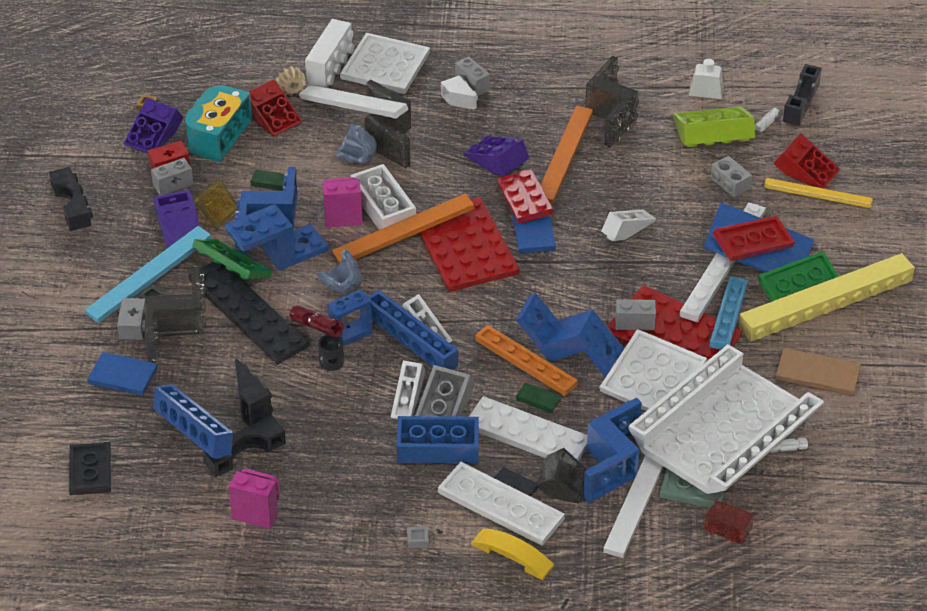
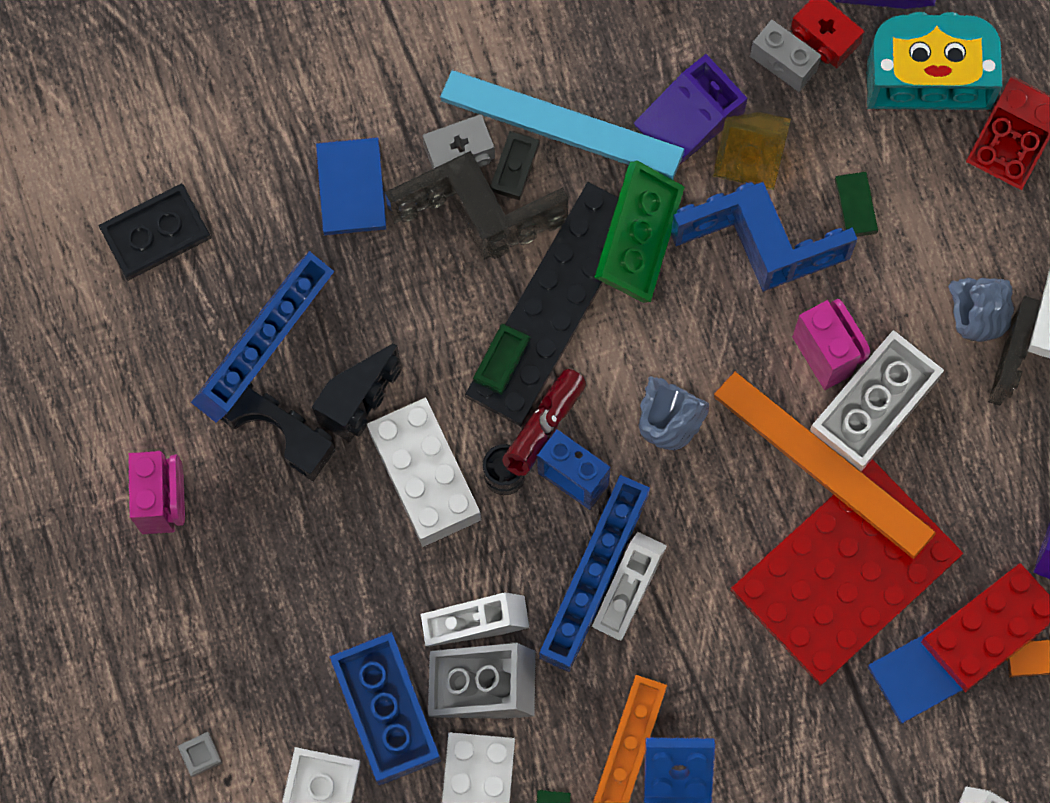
camera: 70 degrees right, 30 degrees up
(267, 333) = (501, 359): none -> dark green tile
(276, 237) = (697, 280): blue bracket -> none
(311, 386) = (424, 472): none -> white brick

